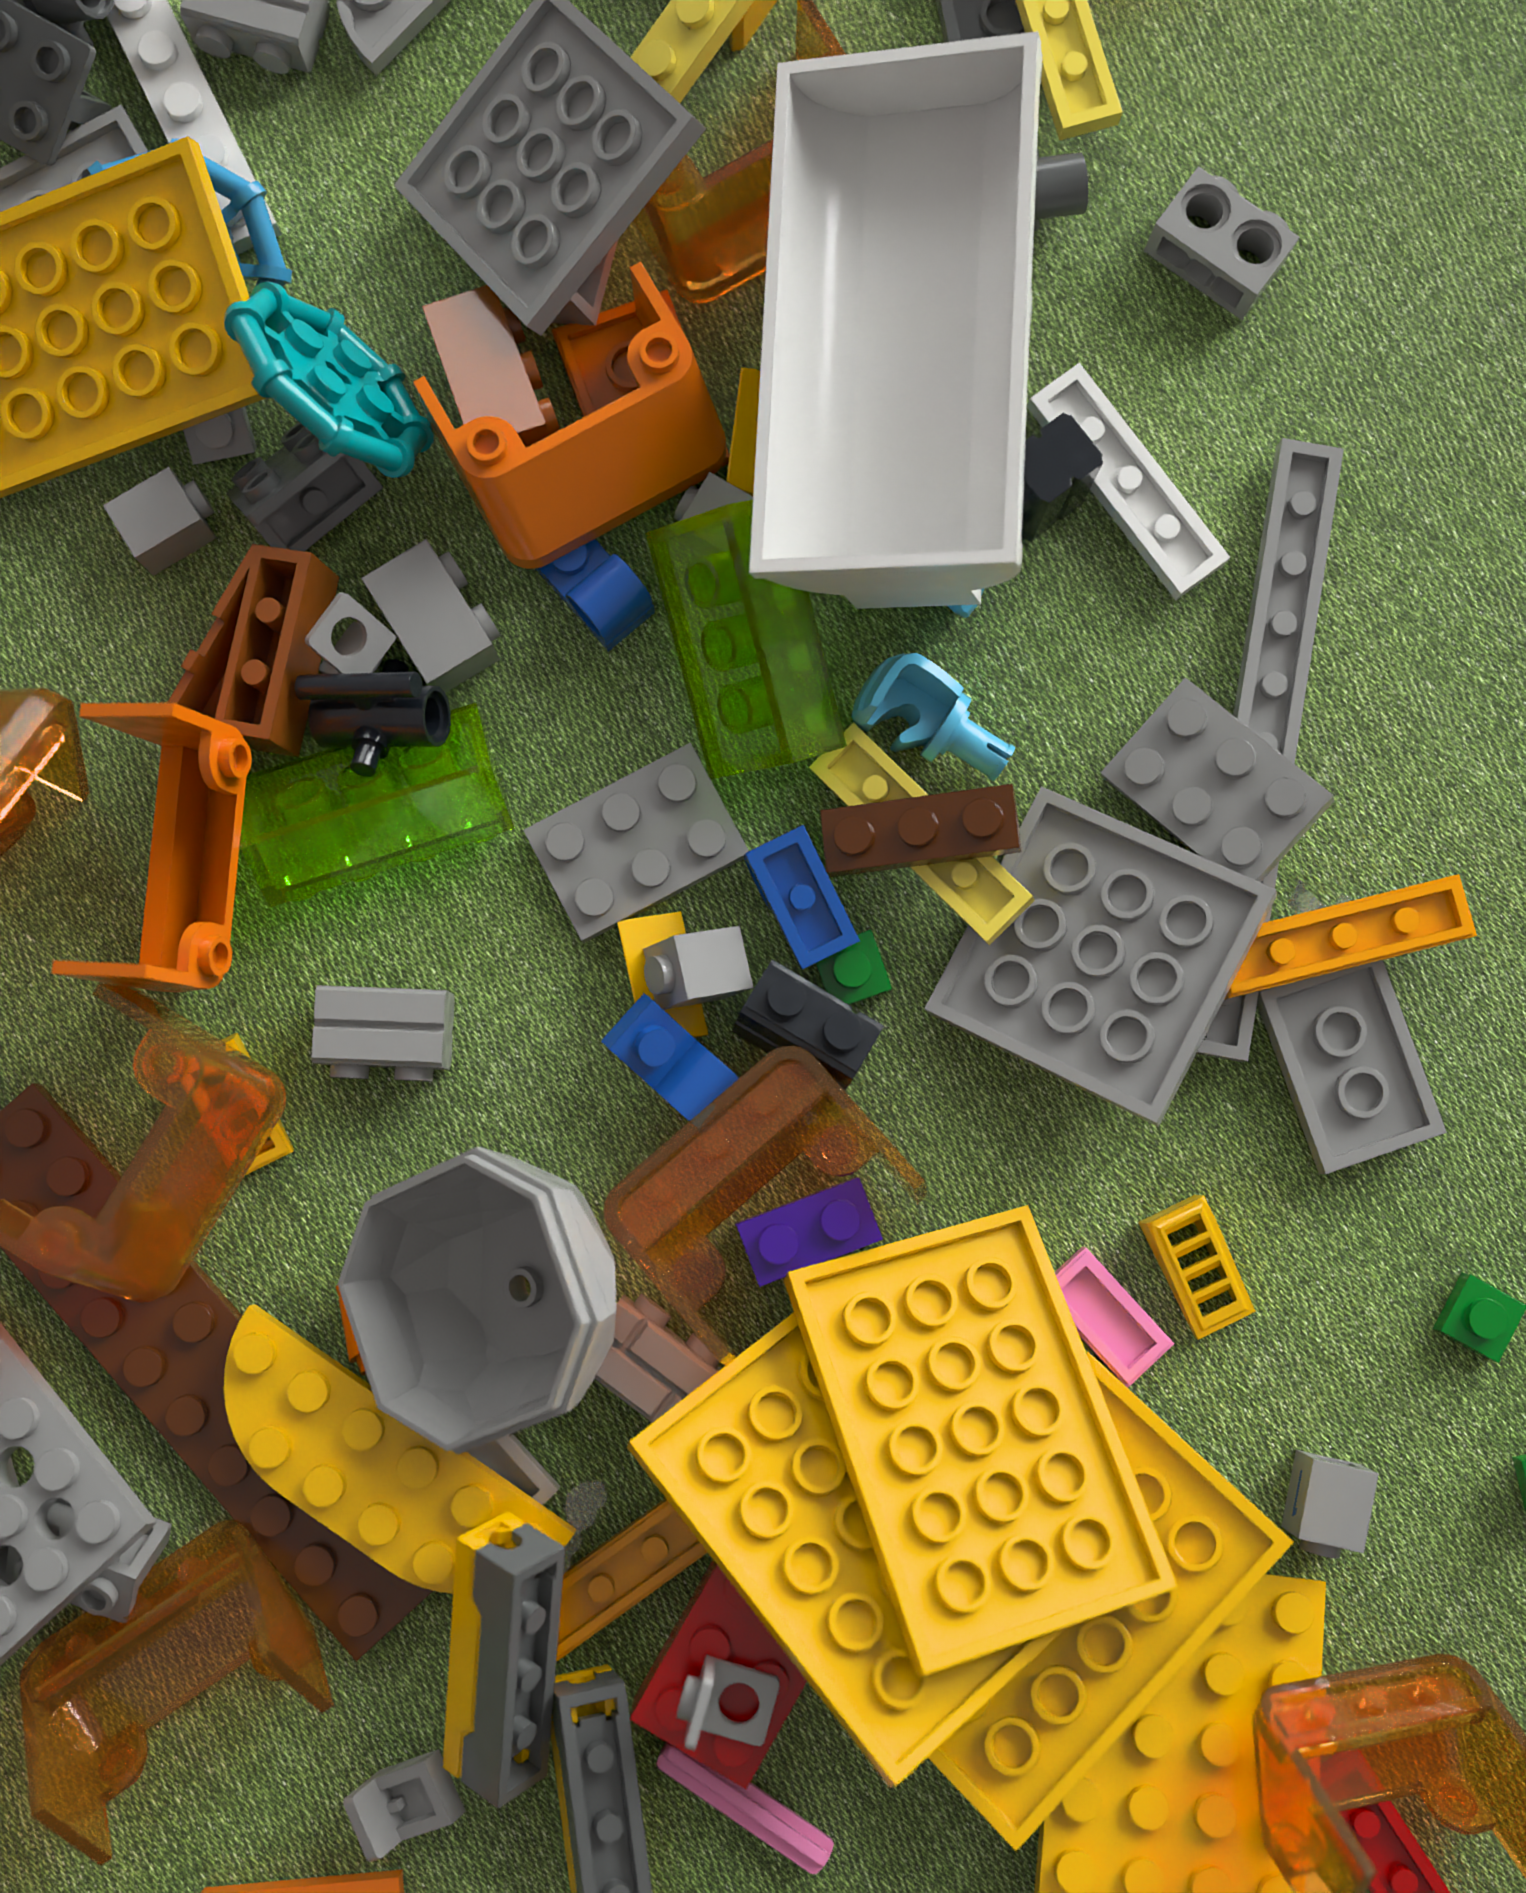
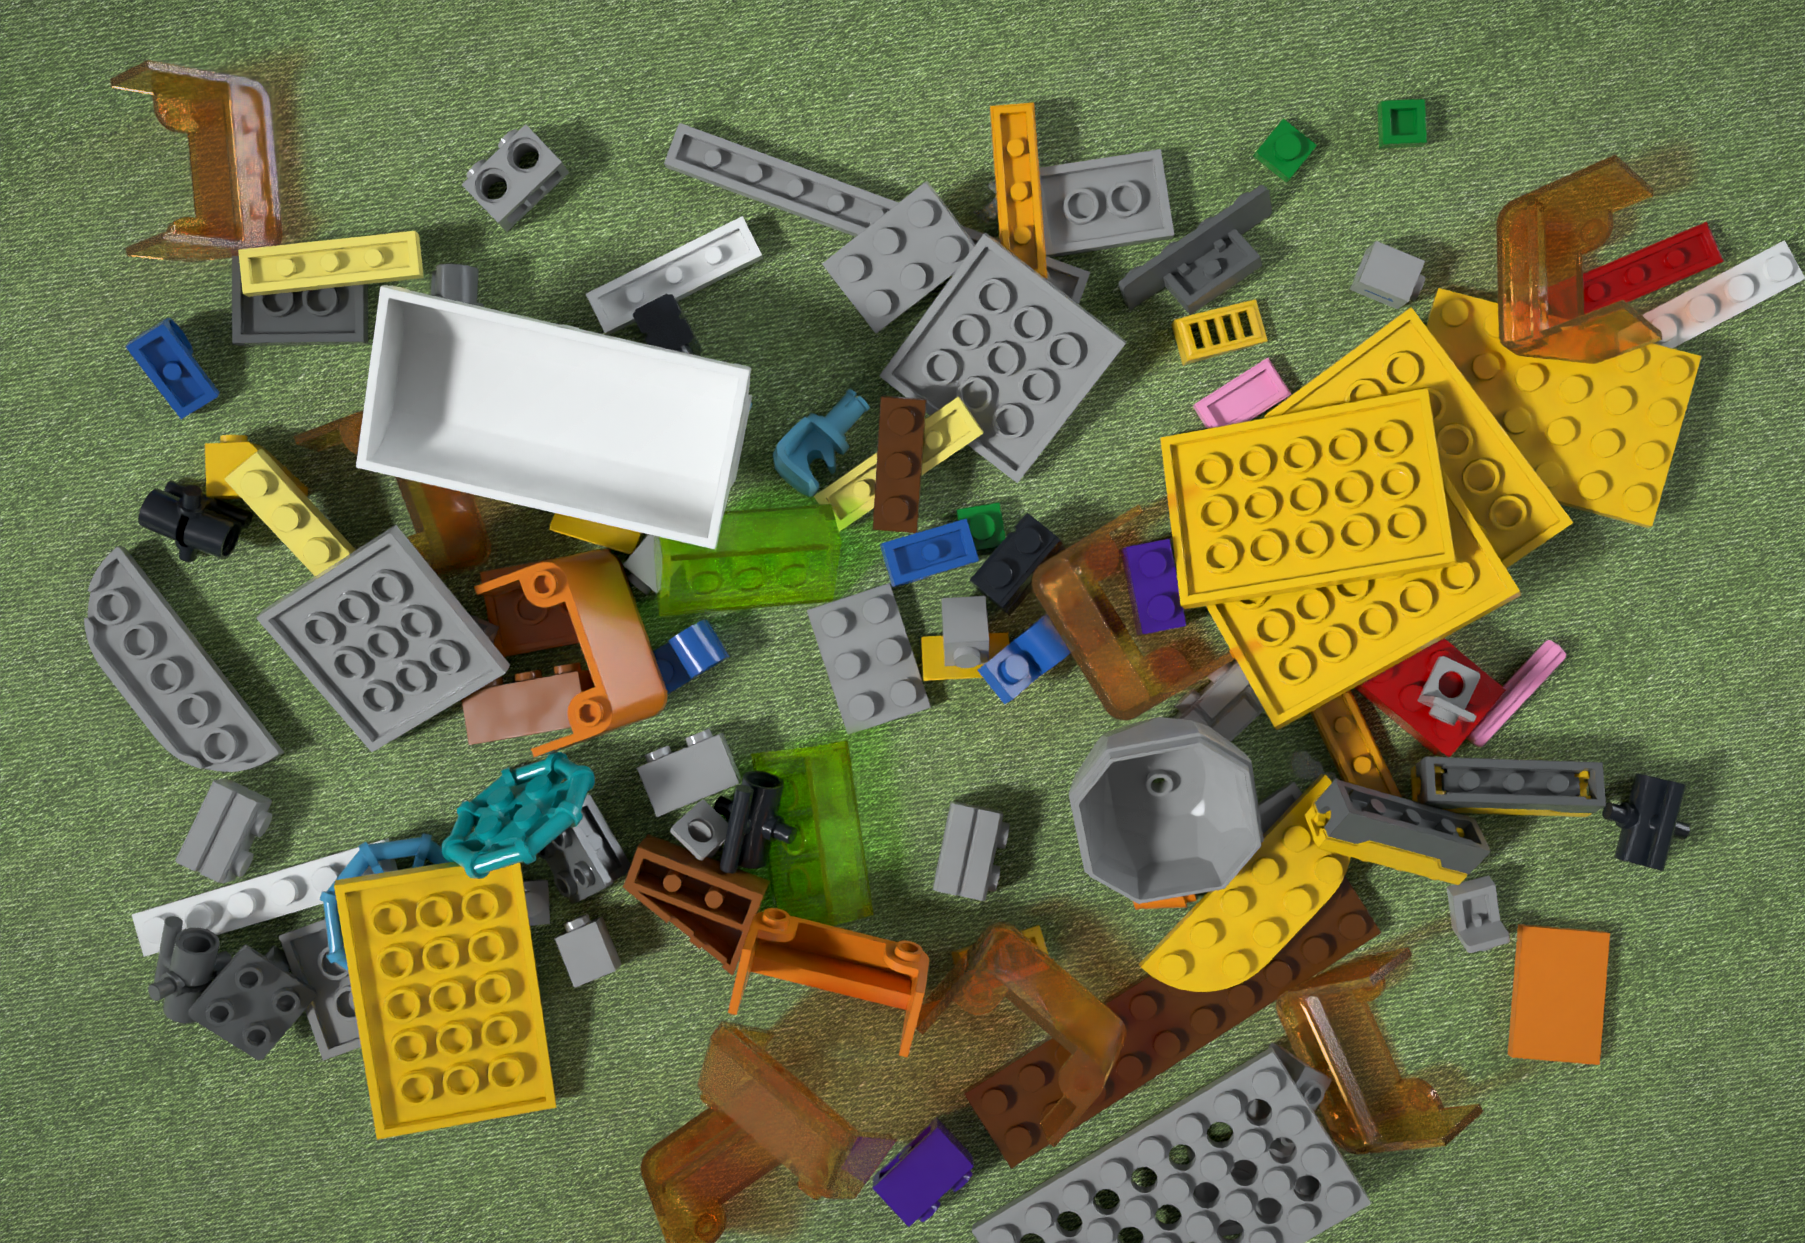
camera: 75 degrees left, 5 degrees up
(1300, 1225) = (1205, 259): none -> dark grey bracket

